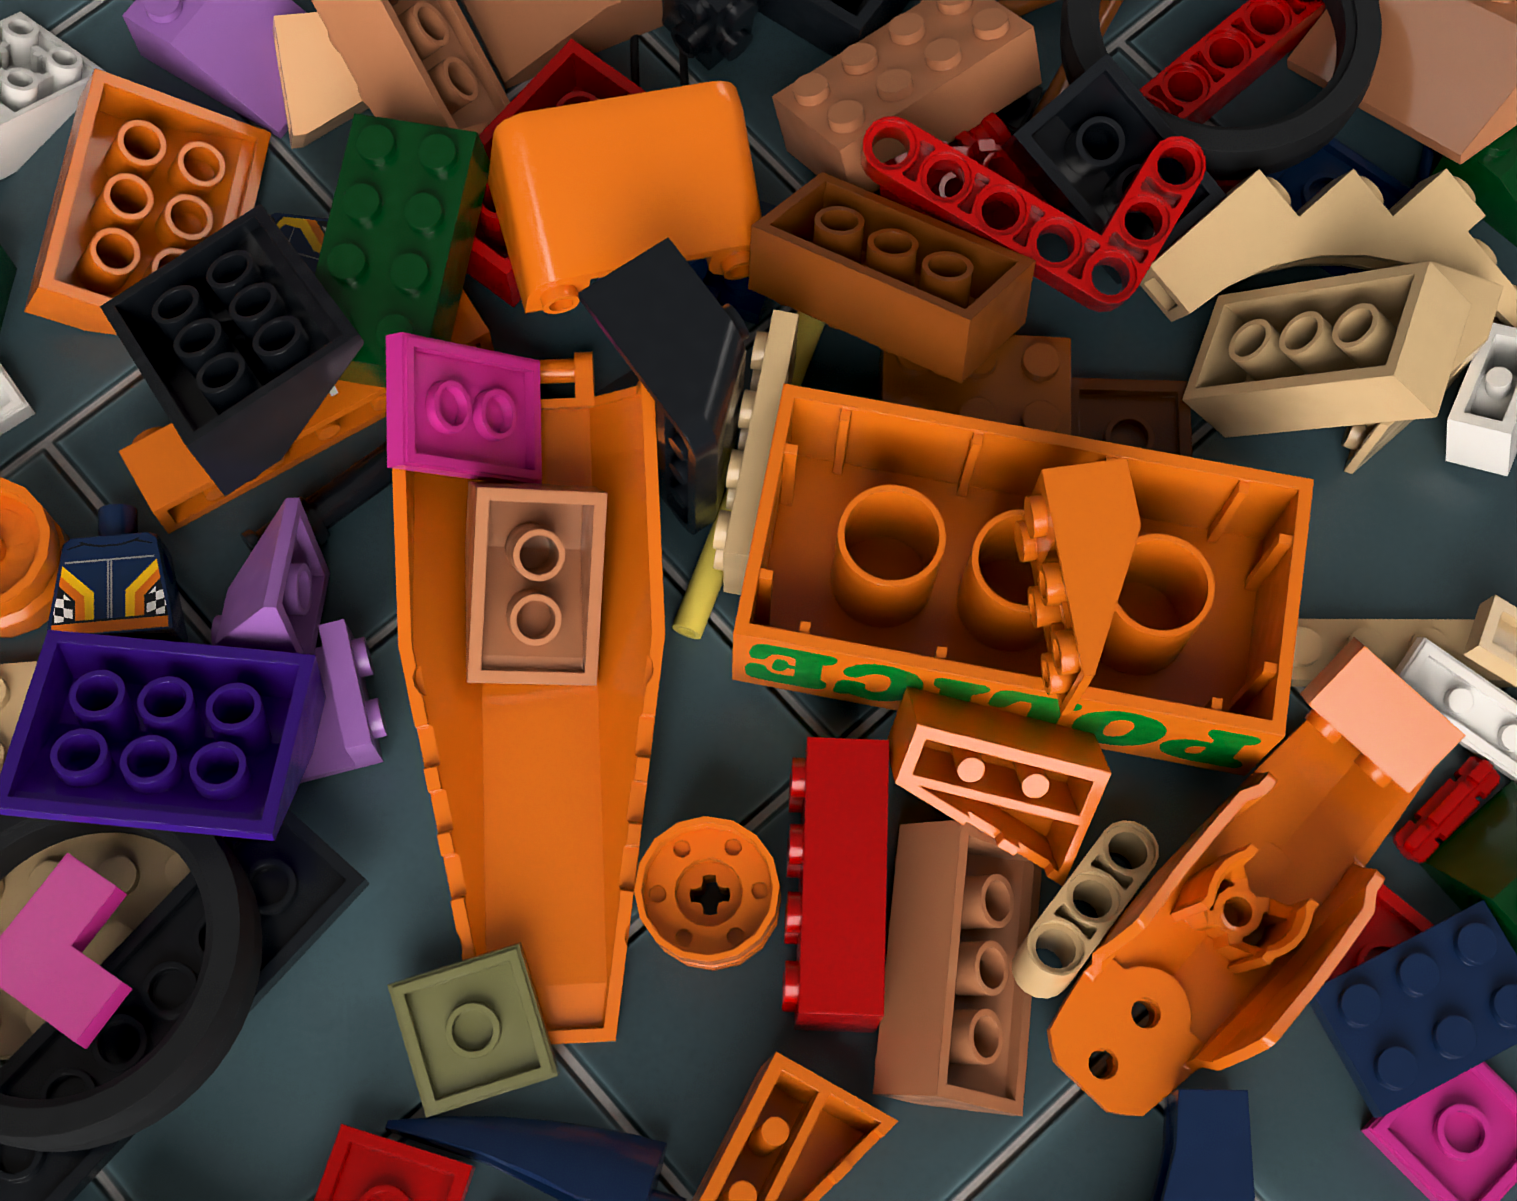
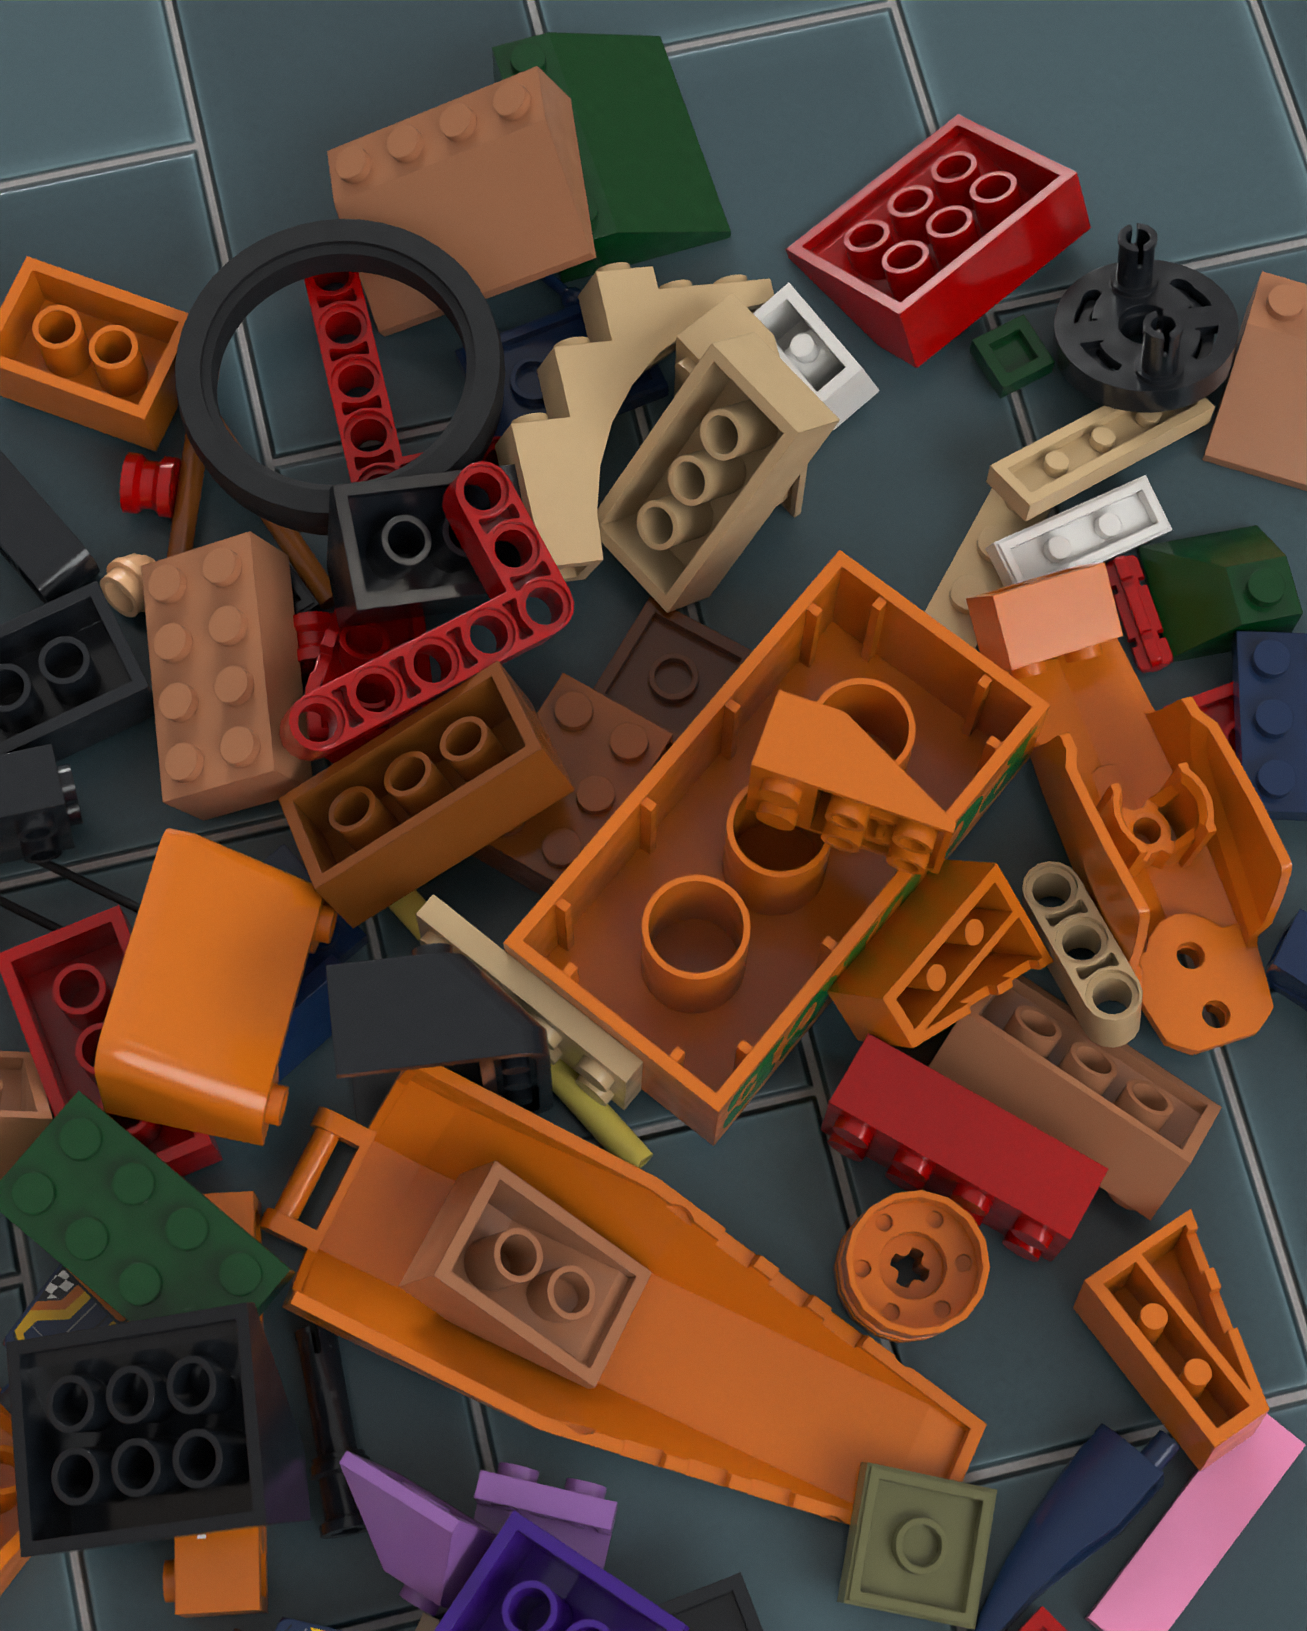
camera: 60 degrees left, 0 degrees up
(462, 410) = (342, 1252): dark pink tile -> none

